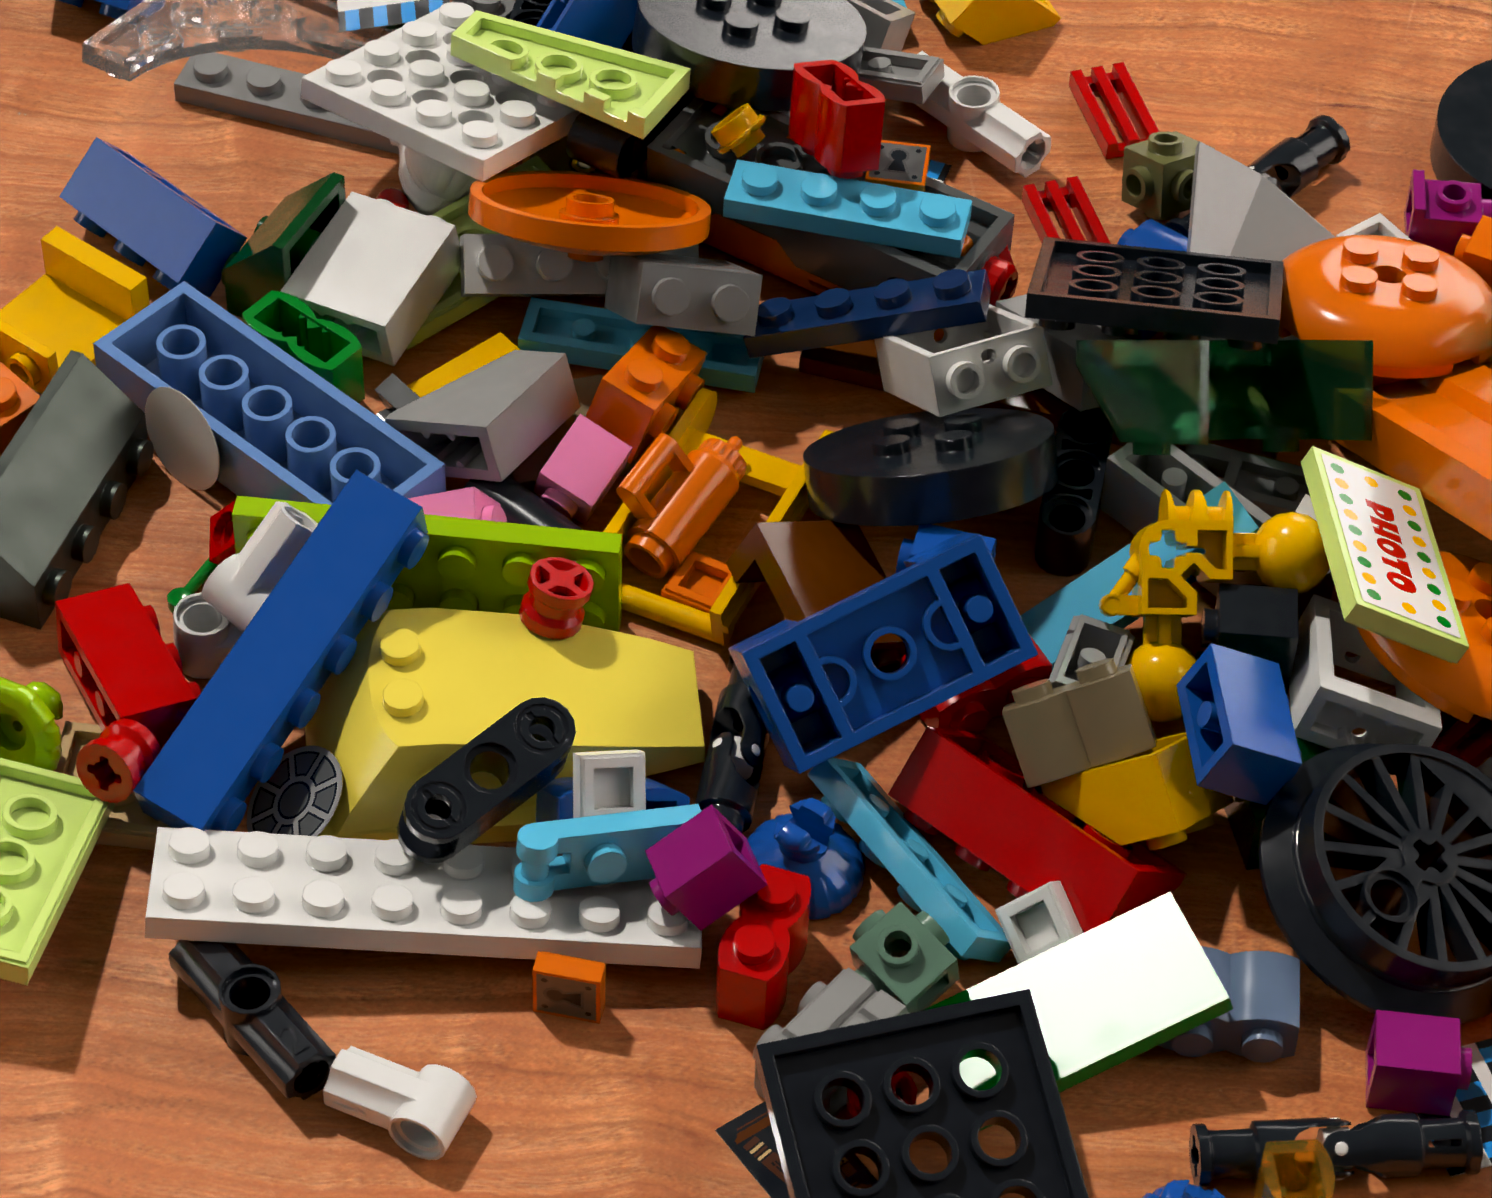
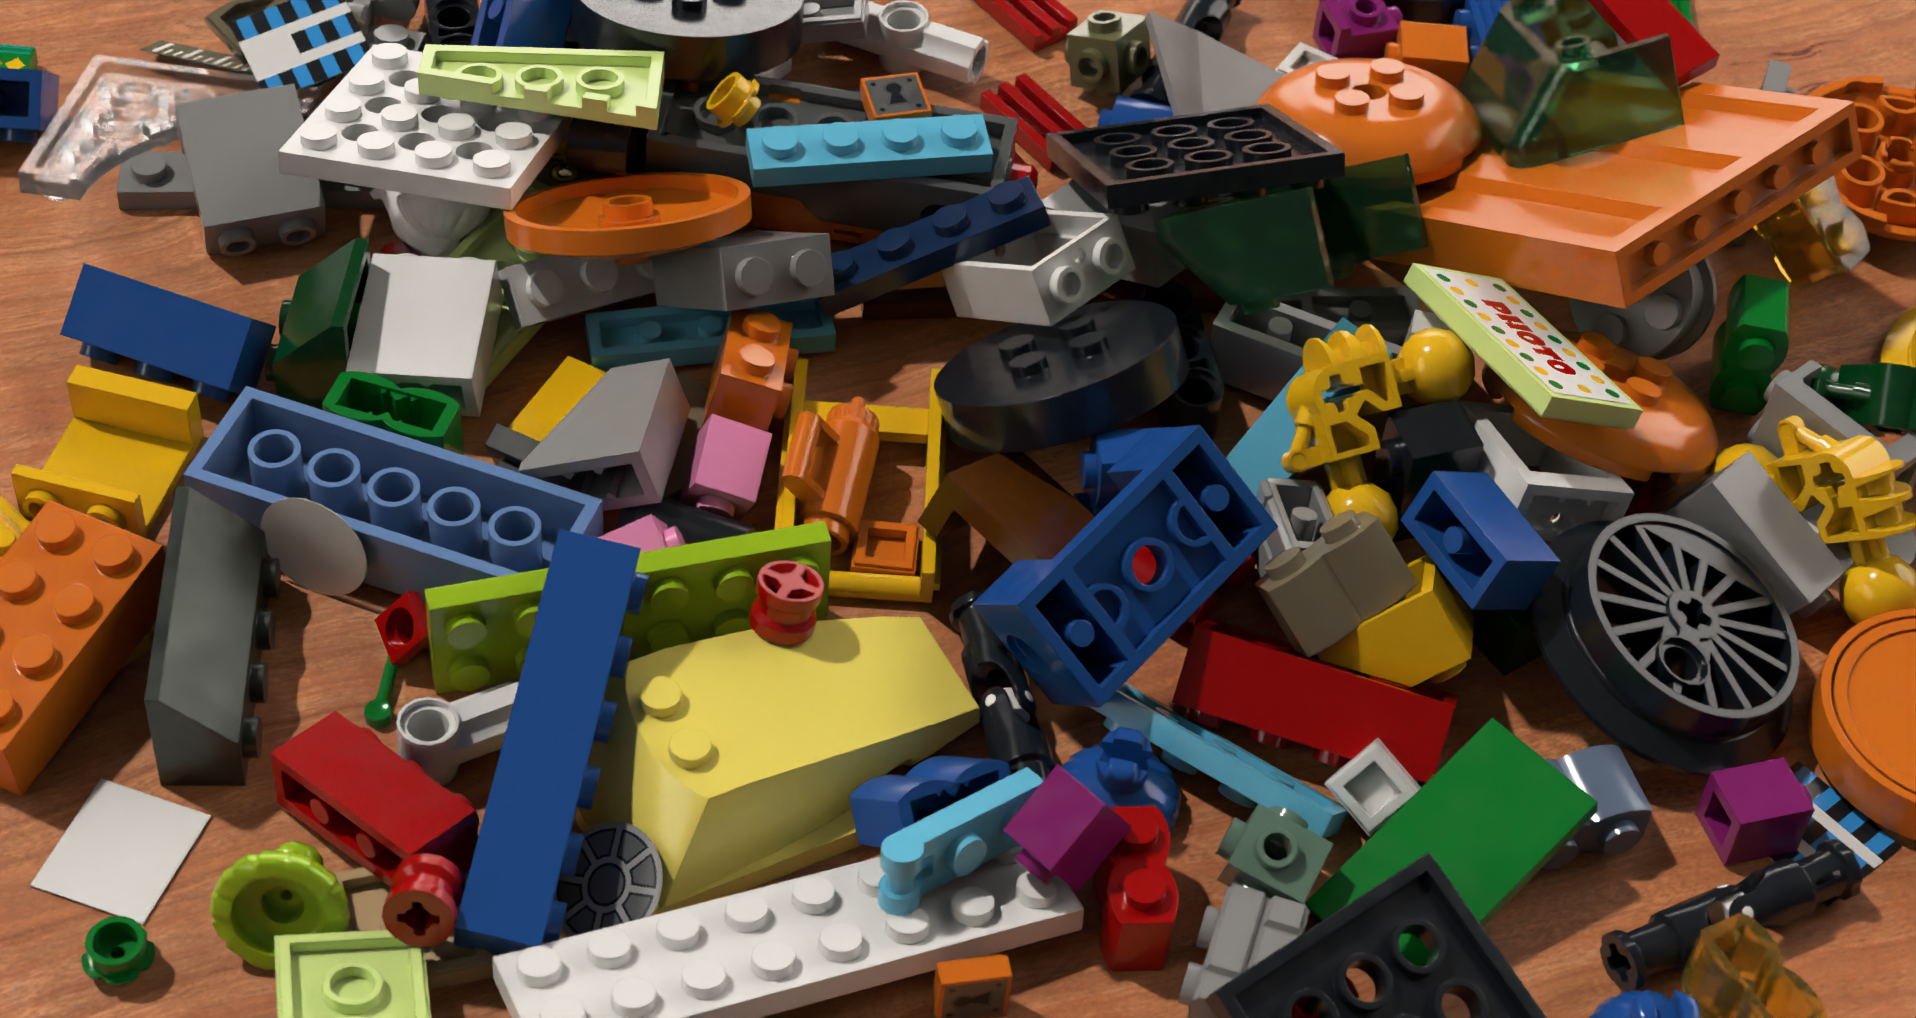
camera: 25 degrees left, 0 degrees up
(247, 578) = (477, 674): white piece -> none
(265, 108) = (236, 171): none -> light grey panel
(451, 810) = (794, 839): black piece -> none
(608, 782) = (939, 773): white tile -> none
(836, 117) = (830, 65): red brick -> none

